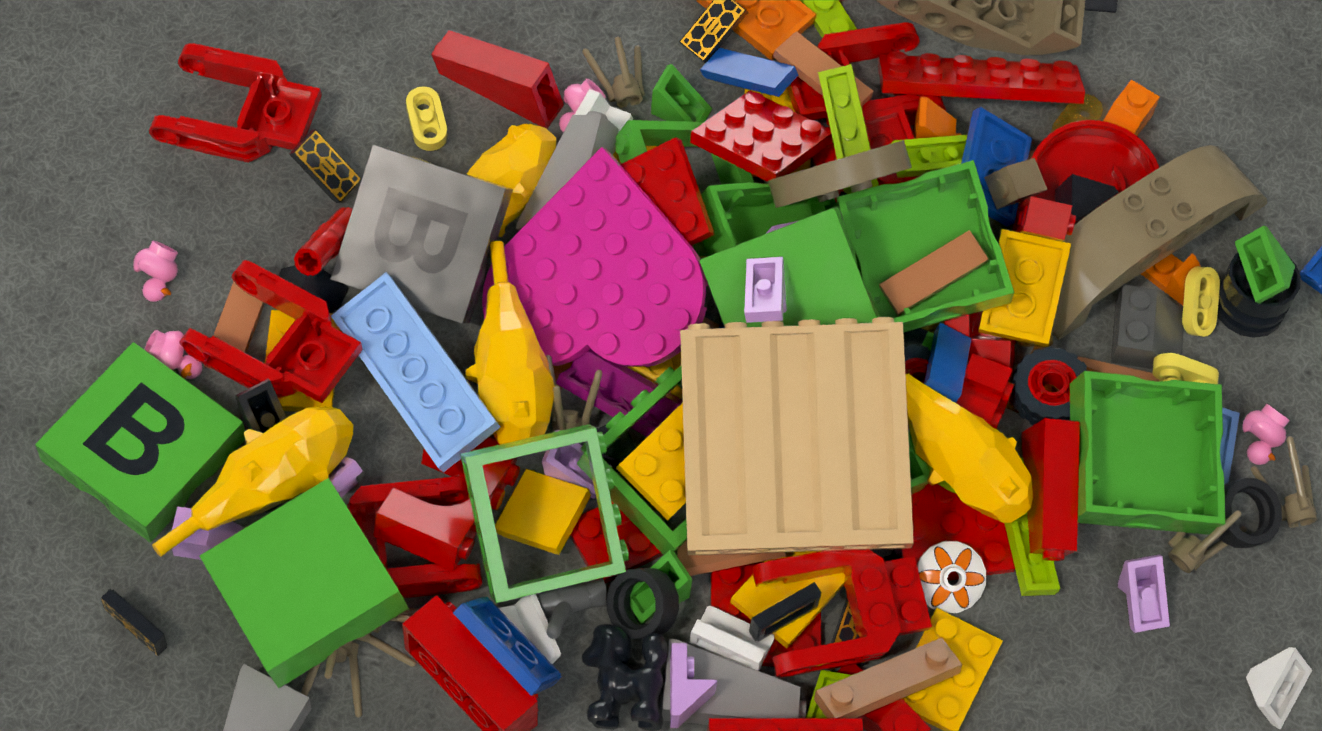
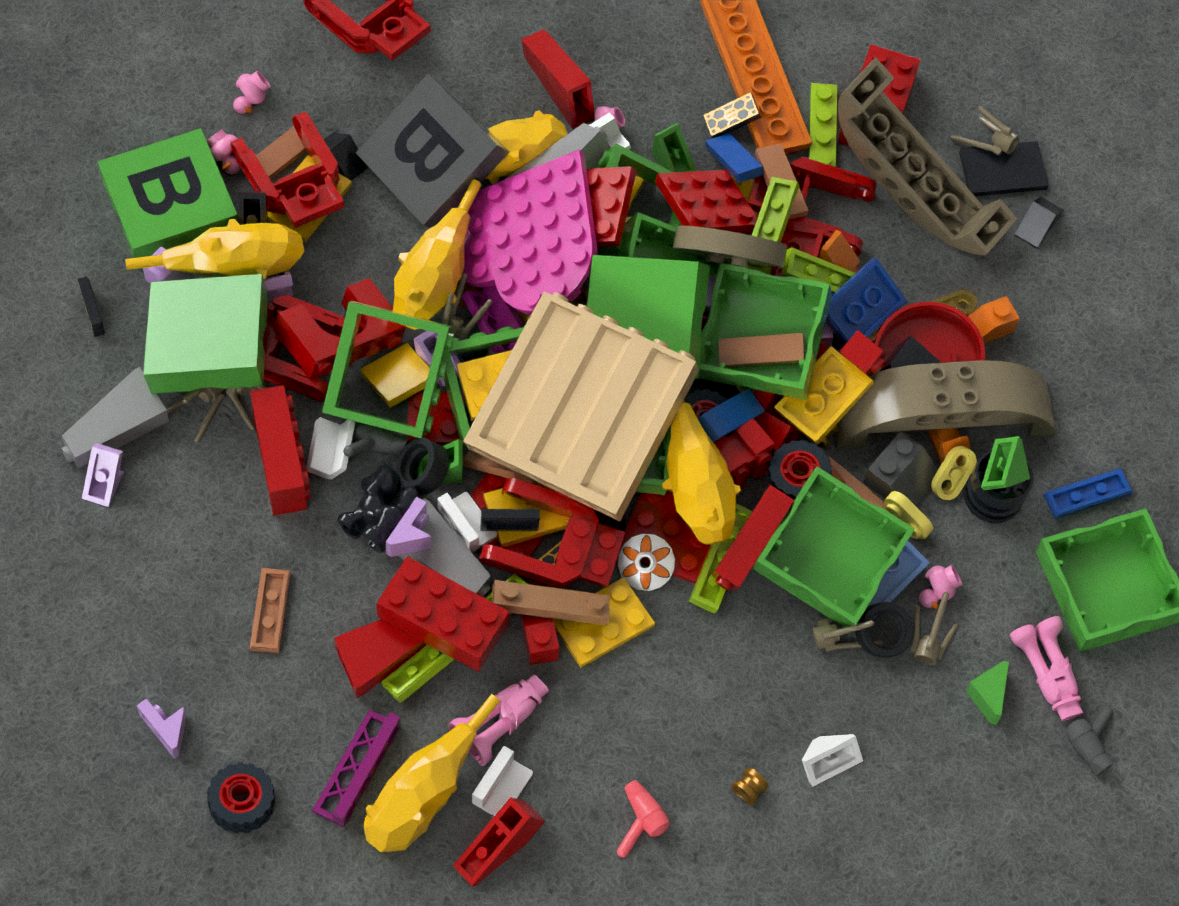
camera: 30 degrees right, 0 degrees up
(323, 243) = (359, 127): red axle -> none
(325, 166) = (400, 74): black tile -> none
(416, 372) = (367, 237): light blue plate -> none
(426, 120) = (492, 83): light yellow plate -> none
(508, 645) = (310, 442): blue tile -> none
(625, 86) = (644, 126): dark tan plant -> none
(765, 290) = (621, 296): lavender slope -> none
(980, 78) = (899, 243): red plate -> none
(1015, 183) = (868, 320): dark tan brick -> none
(1146, 593) = (774, 644): lavender slope -> none

